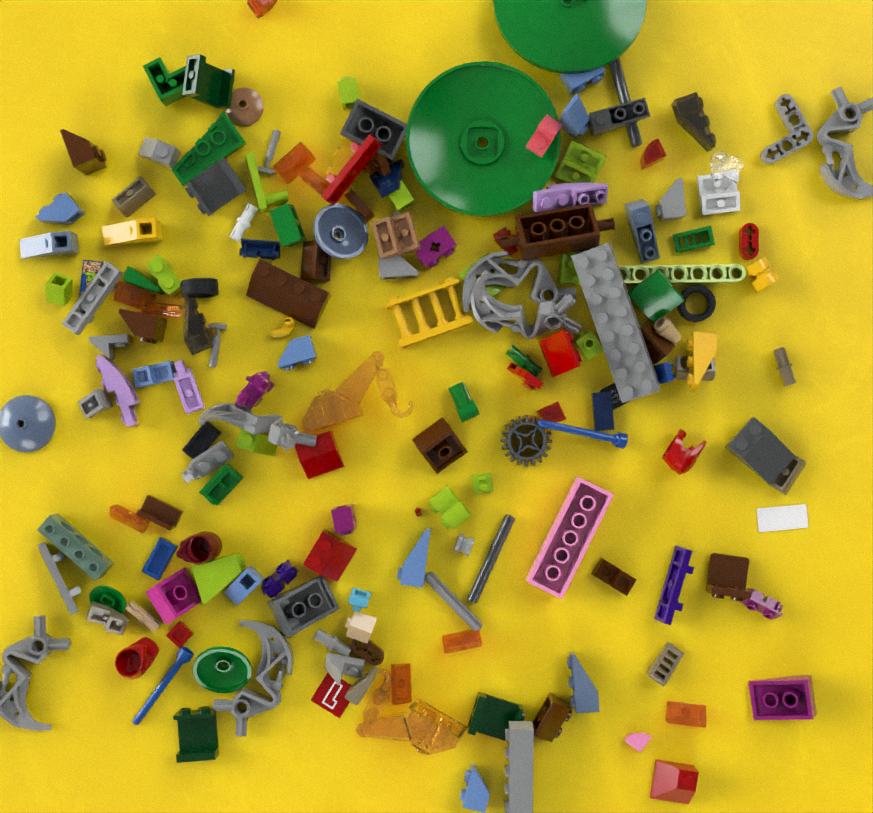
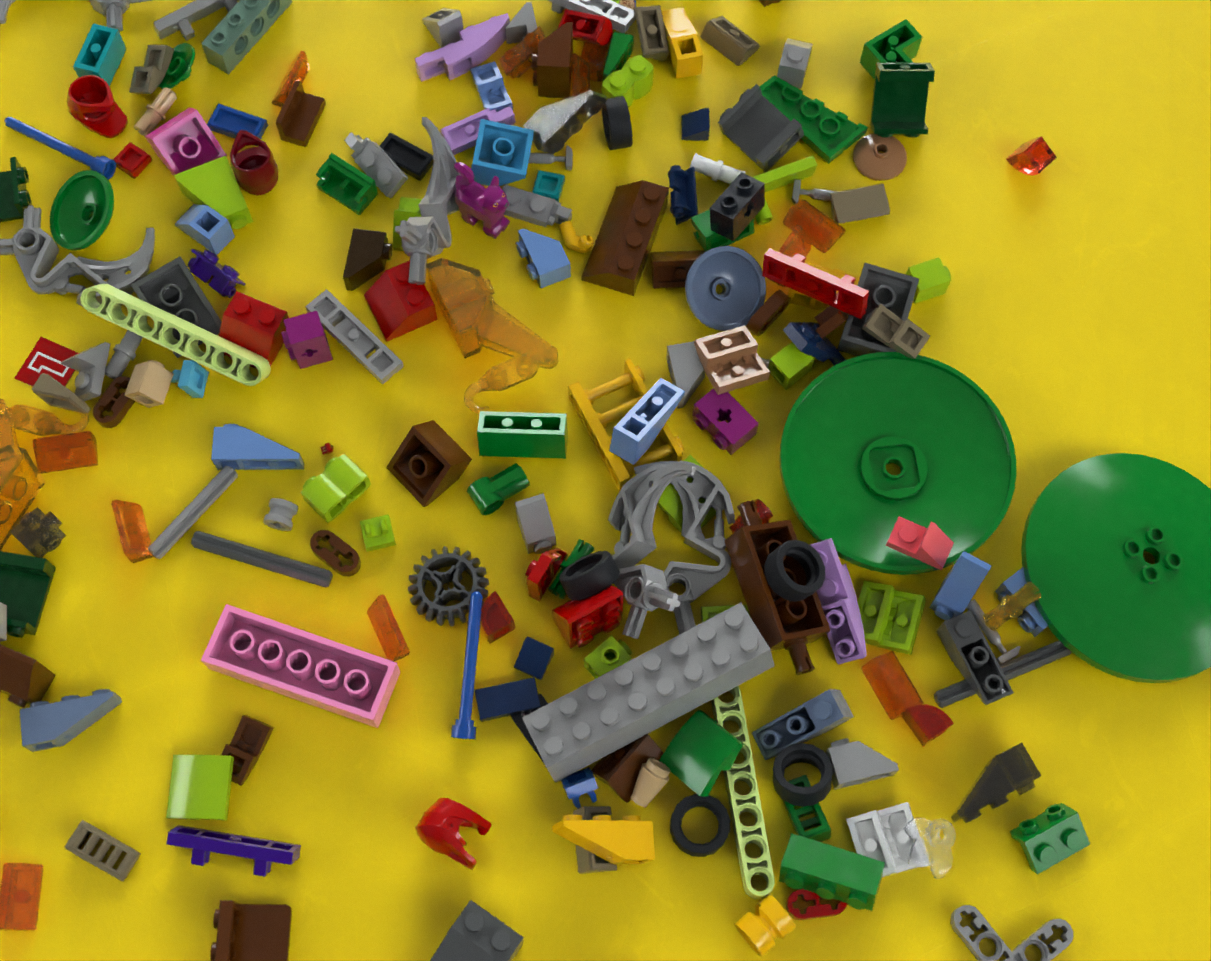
camera: 80 degrees right, 20 degrees down
(94, 654) = (100, 53): none -> teal brick
(115, 300) = (588, 27): none -> red brick
(124, 252) = (652, 32): none -> dark tan slope
(131, 347) = (516, 60): none -> clear orange hinge
(203, 232) = (696, 125): none -> dark blue slope
(214, 372) = (501, 152): none -> dark azure slope
(239, 343) = (549, 184): none -> teal tile
(255, 355) = (535, 208): none -> light grey hinge
(281, 474) = (365, 257): none -> dark brown slope
(284, 128) = (859, 203): none -> dark tan slope
(284, 213) = (737, 206): none -> black brick
(301, 652) = (162, 334): none -> yellowish green beam
(343, 487) = (355, 337): none -> light grey hinge
(394, 122) = (895, 333): none -> dark tan slope
(430, 381) = (522, 434): none -> green brick
(434, 298) = (644, 421): none -> medium blue slope
(459, 707) = (39, 532): none -> clear smoke brick
(495, 379) = (535, 524): none -> light grey slope
(496, 514) = (331, 558): none -> reddish brown beam
(546, 346) = (589, 575): none -> black tyre
(549, 481) = (387, 629): none -> clear orange slope
(557, 206) = (809, 560): none -> black tyre
(579, 391) = (534, 658): none -> dark blue slope
(589, 86) = (1011, 606): none -> clear yellow pin
(600, 102) = (992, 636): none -> light grey piece
(623, 171) = (891, 684): none -> clear orange slope
(635, 604) = (200, 787): none -> lime slope
(673, 222) = (807, 754): none -> black tyre
(728, 94) = (1051, 837): none -> green bracket
(737, 229) = (831, 872): none -> green brick

